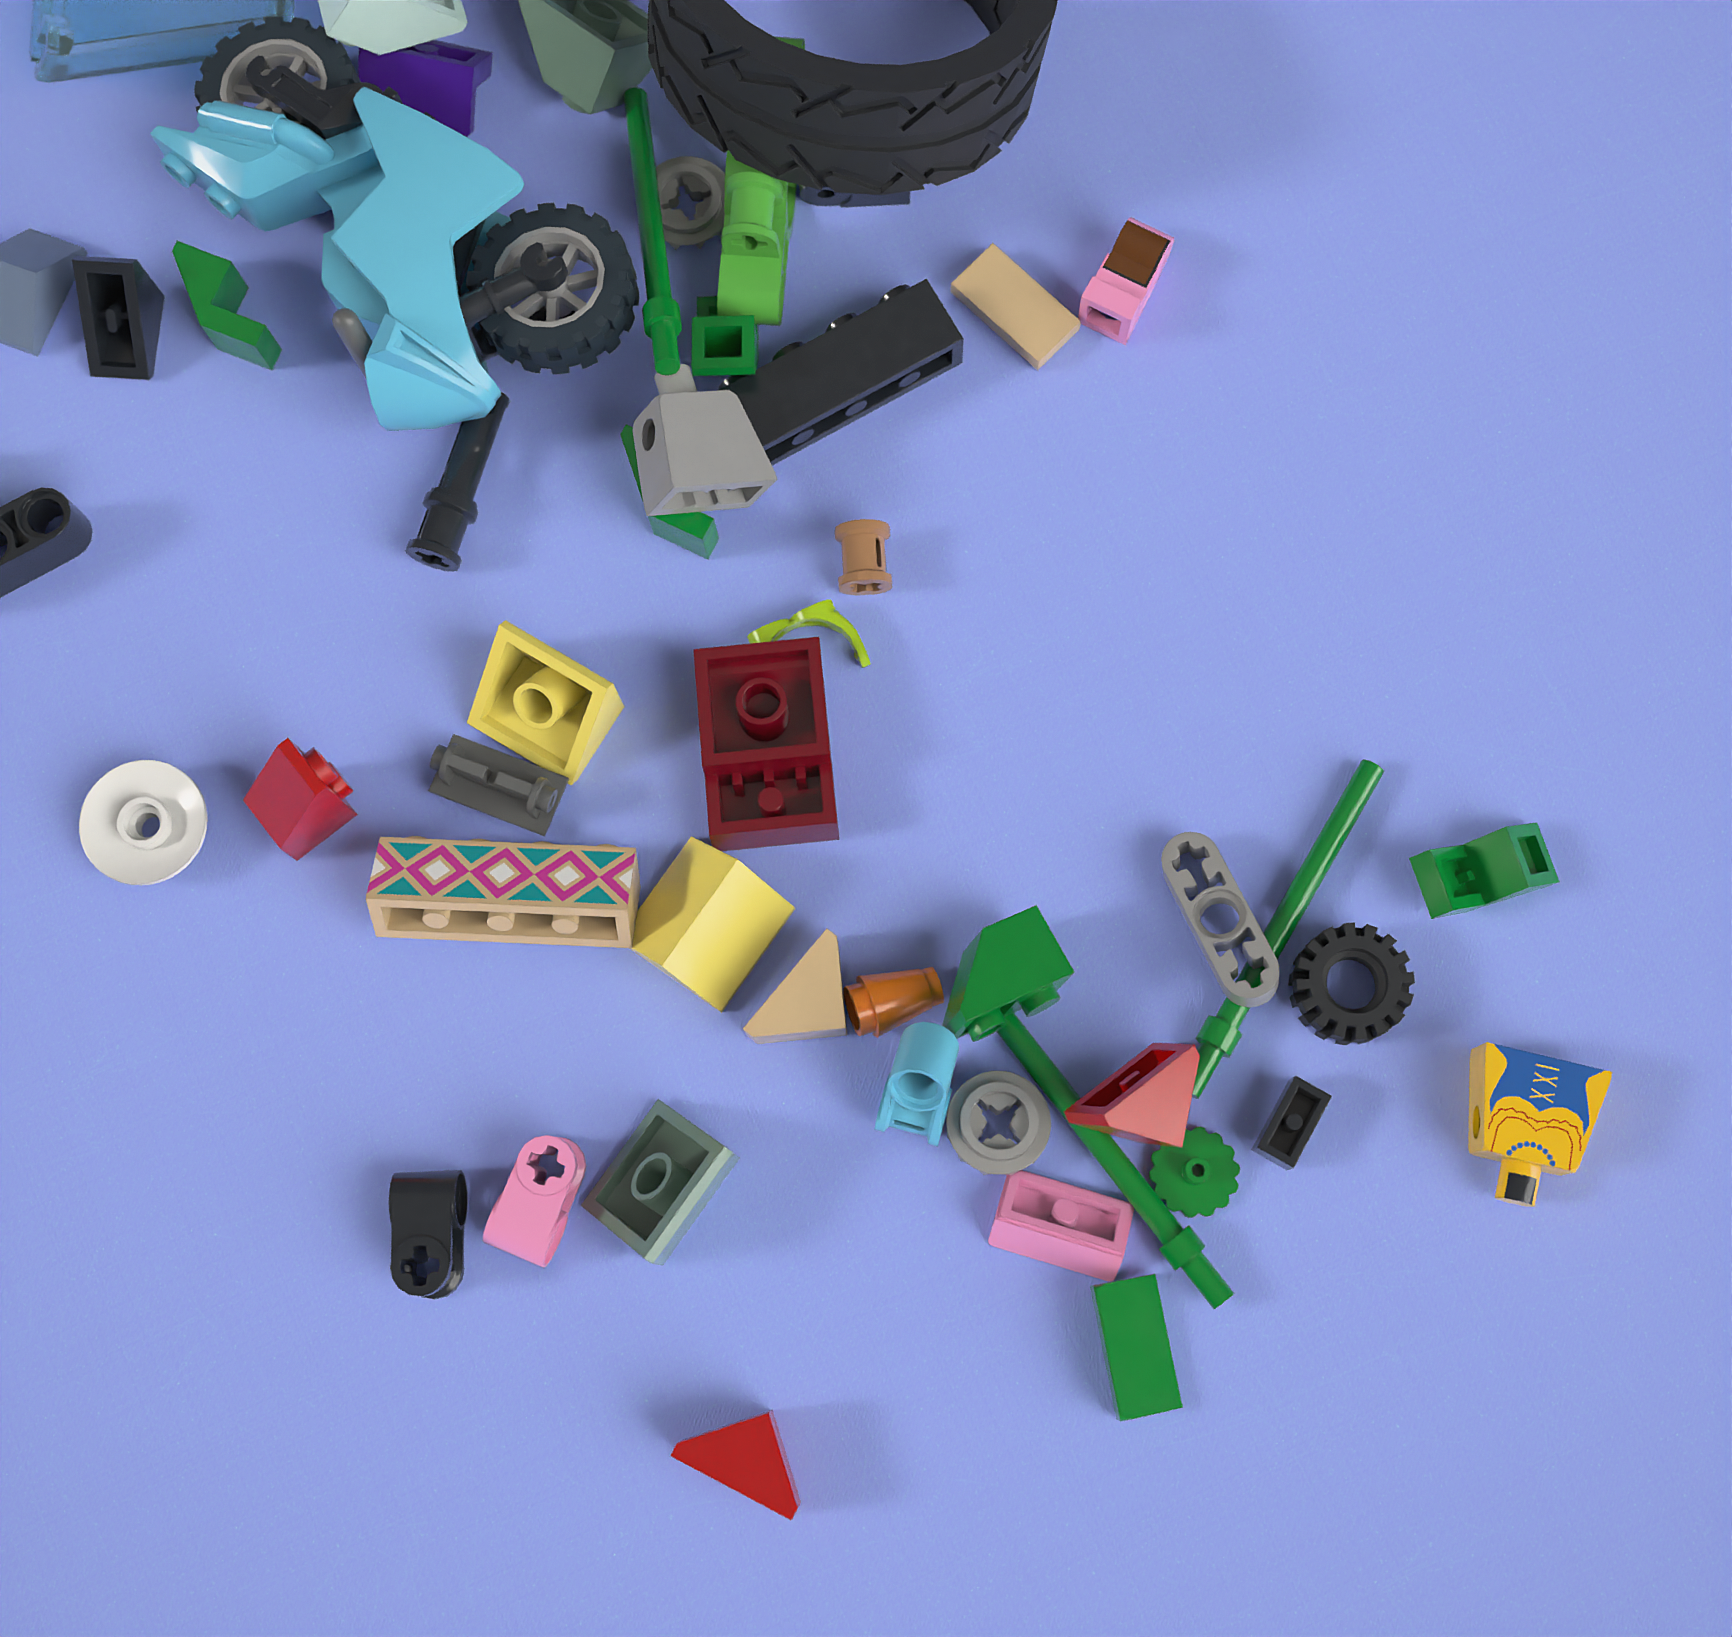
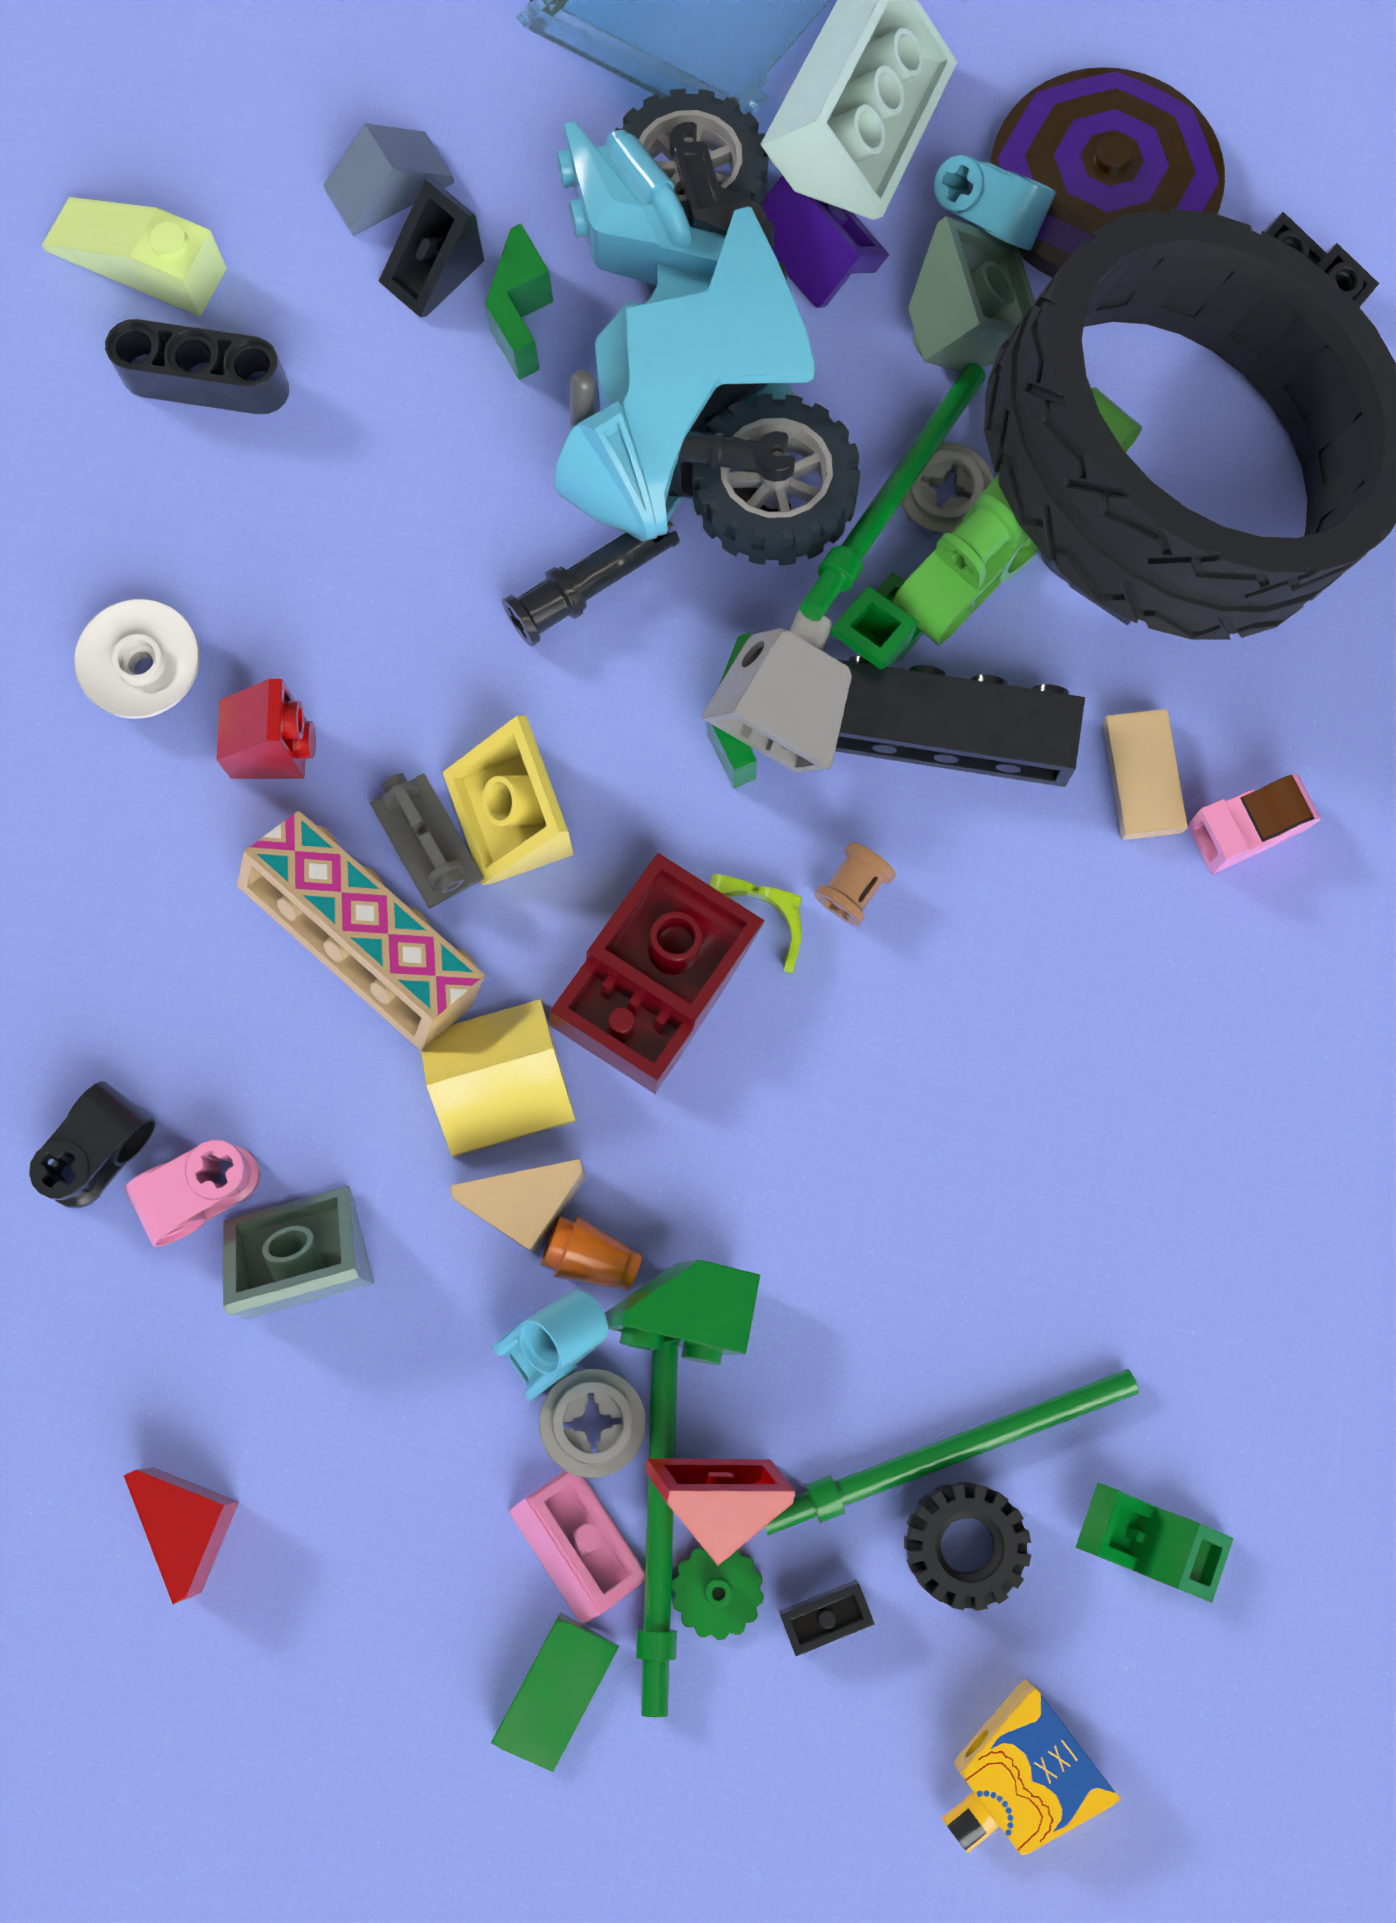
camera: 35 degrees right, 0 degrees up
(1225, 967) = (874, 1448): light grey beam -> none

